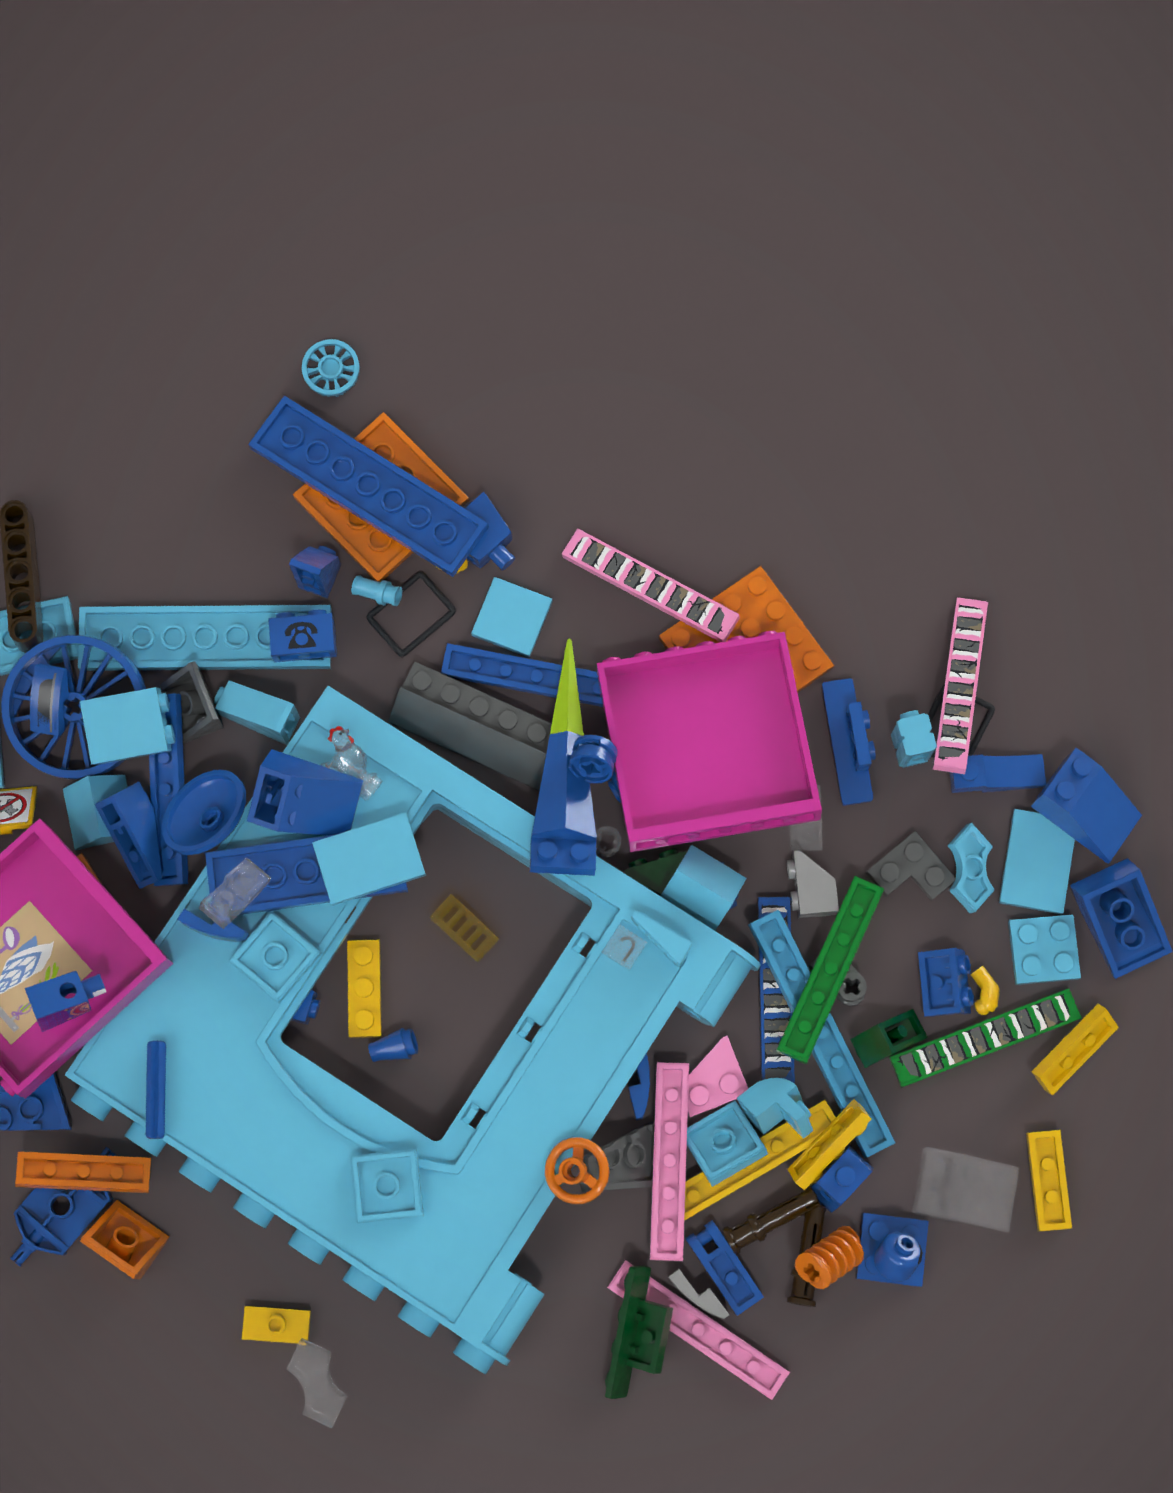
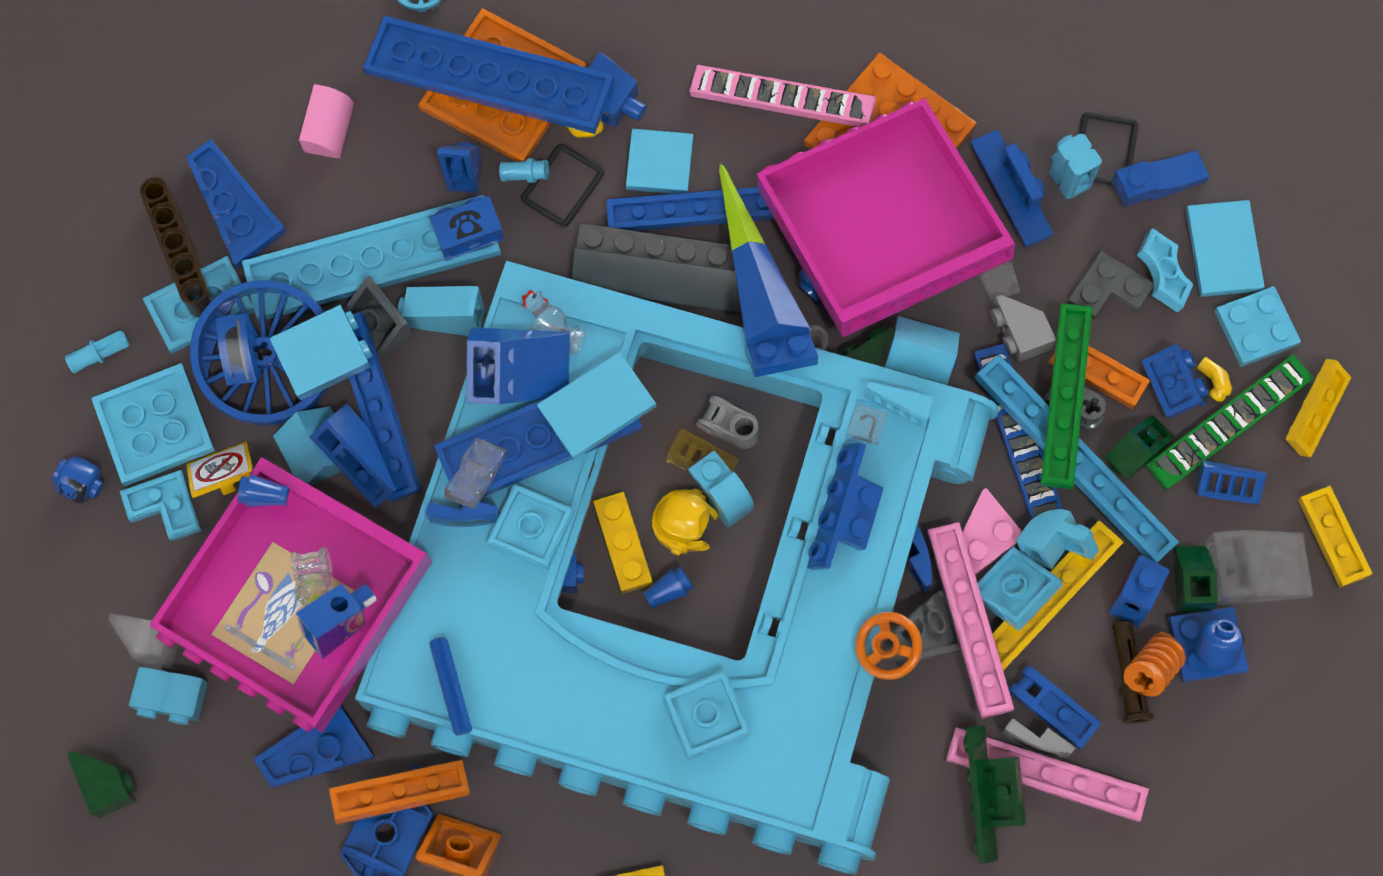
camera: 15 degrees left, 5 degrees down
(28, 854) = (261, 492): none -> blue cone
(53, 947) = (311, 573): none -> clear piece
(89, 552) = (238, 211): none -> blue wing
(199, 487) = (326, 122): none -> bright pink brick
(204, 812) = (421, 411): blue dish -> none
(426, 984) = (681, 519): none -> yellow helmet
(471, 965) = (723, 488): none -> medium azure brick
(495, 897) = (724, 419): none -> light grey piece
(579, 1028) = (848, 509): none -> blue bracket
(593, 758) = (784, 255): blue wheel -> none
(759, 1225) = (1074, 657): dark brown pin -> none
(829, 1144) = (1119, 558): yellow plate -> none
(884, 962) = (1113, 378): none -> orange plate
(898, 1182) = (1194, 579): none -> dark green slope
(960, 686) = (1102, 106): tile -> none
(970, 1089) = (1208, 467): none -> blue slope
(1088, 805) = (1254, 181): blue slope -> none
(1121, 917) = (1320, 275): blue slope -> none

